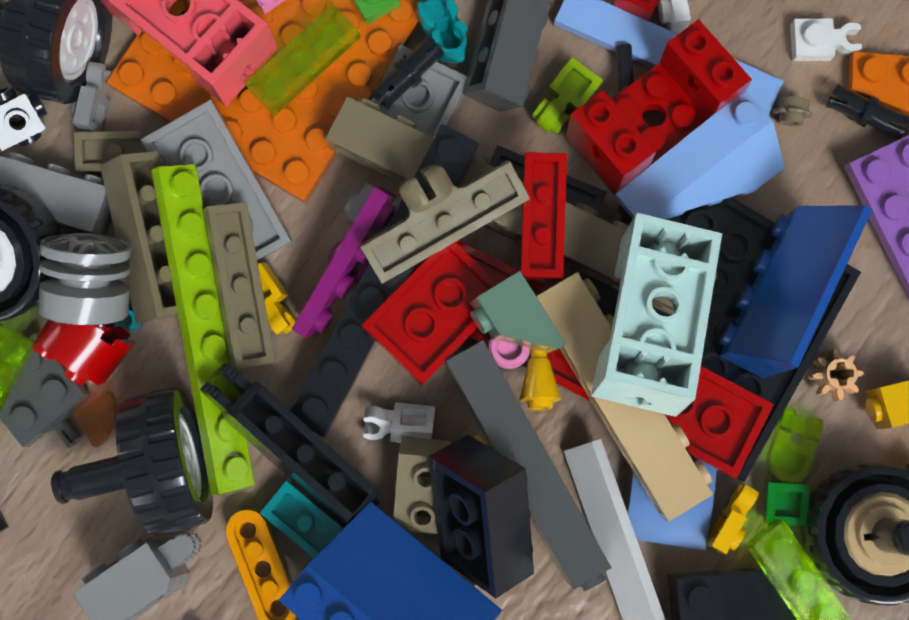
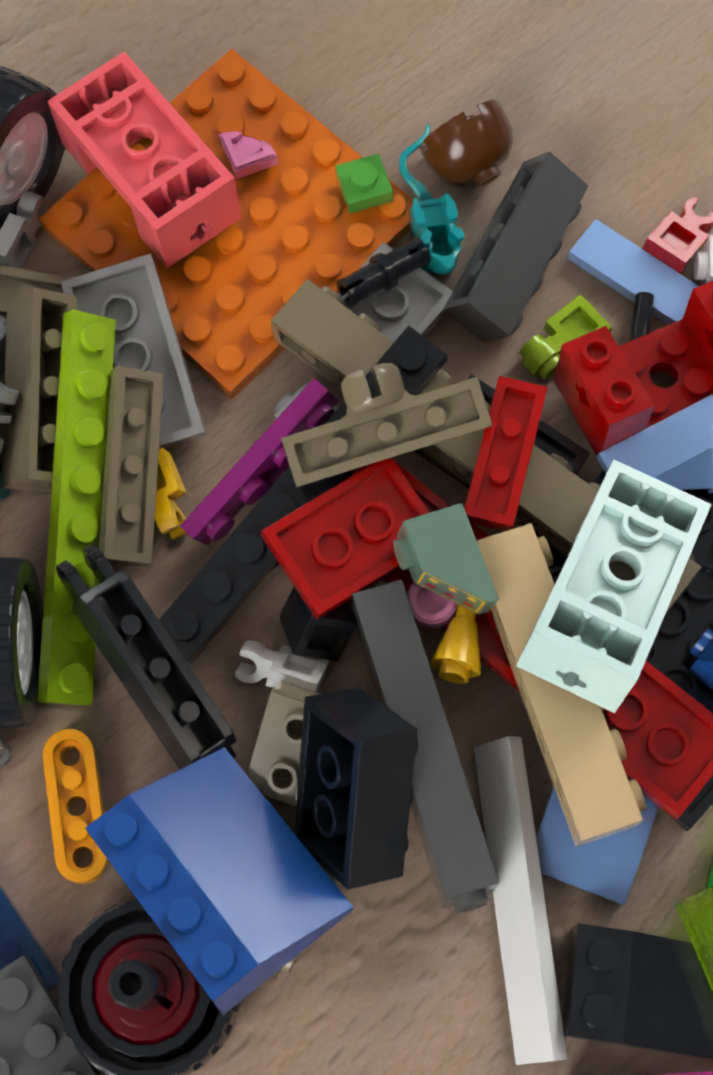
camera: 15 degrees right, 10 degrees down
(301, 519) = (132, 751): teal plate -> none
(303, 60) = (266, 234): clear neon green plate -> none
(412, 394) = (313, 637): none -> black panel
(728, 528) = (658, 886): yellow plate -> none

